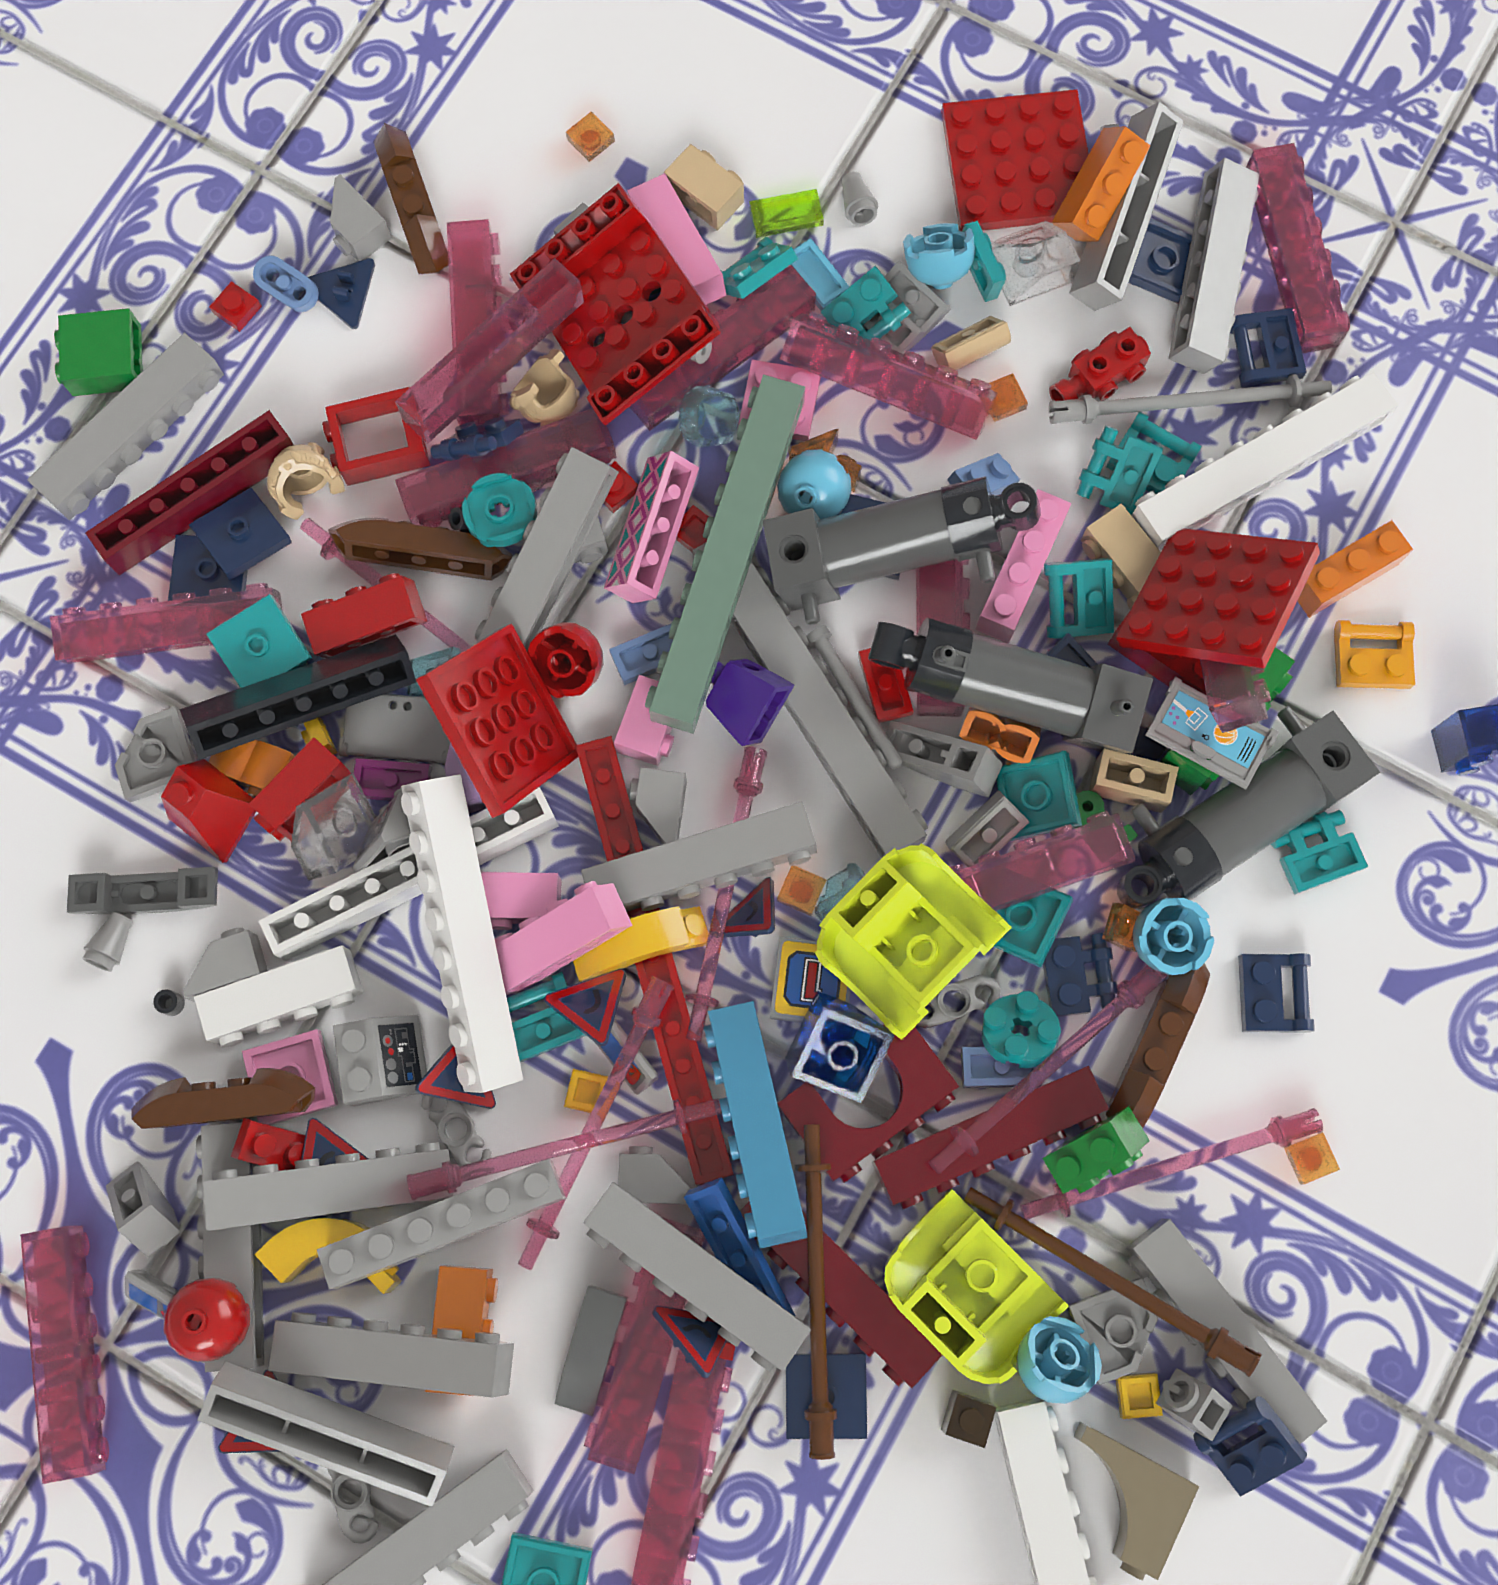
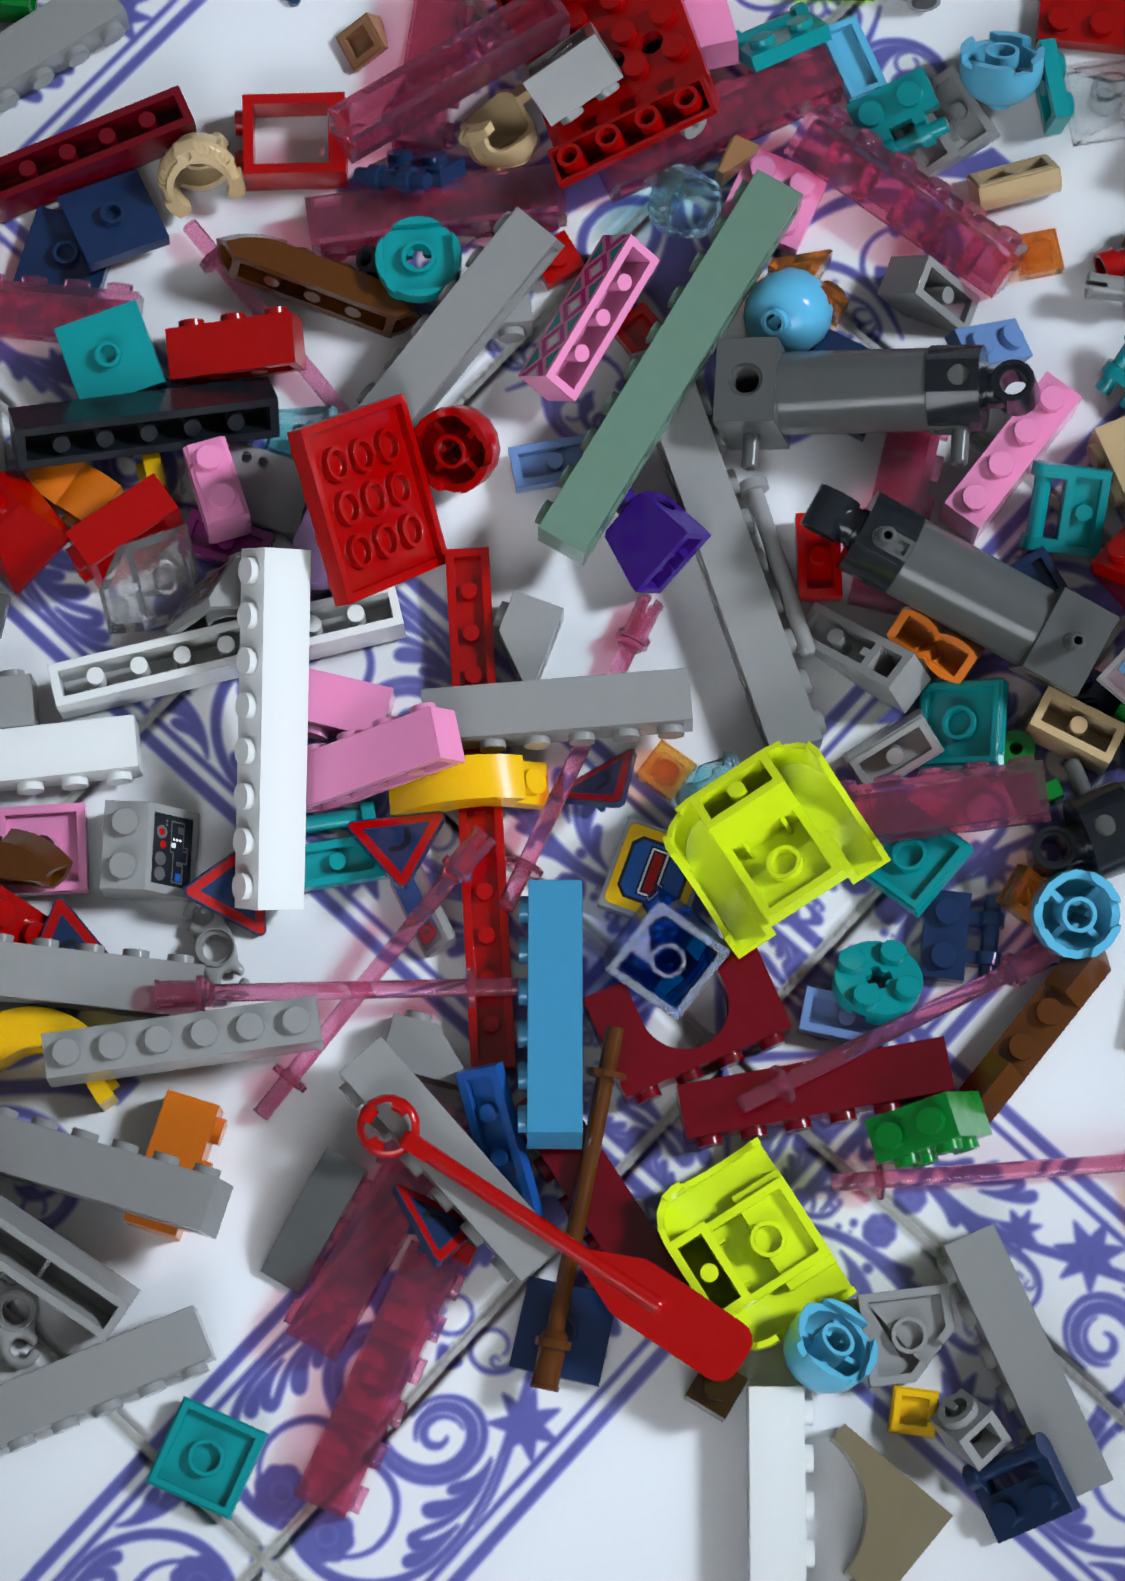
camera: 10 degrees right, 0 degrees up
(372, 738) = (217, 489): none -> bright pink brick
(416, 343) = (363, 41): none -> medium nougat slope
(584, 1090) = (368, 938): yellow tile -> none
(593, 332) = (571, 75): none -> light grey slope
(639, 735) = (520, 553): bright pink brick -> none
(741, 371) = (735, 157): none -> medium nougat slope
(875, 1353) = (628, 1285): none -> red piece
(923, 447) = (928, 292): none -> light grey slope
(967, 989) = (827, 922): light grey piece -> none
(1214, 1340) = (1007, 1362): reddish brown bar -> none

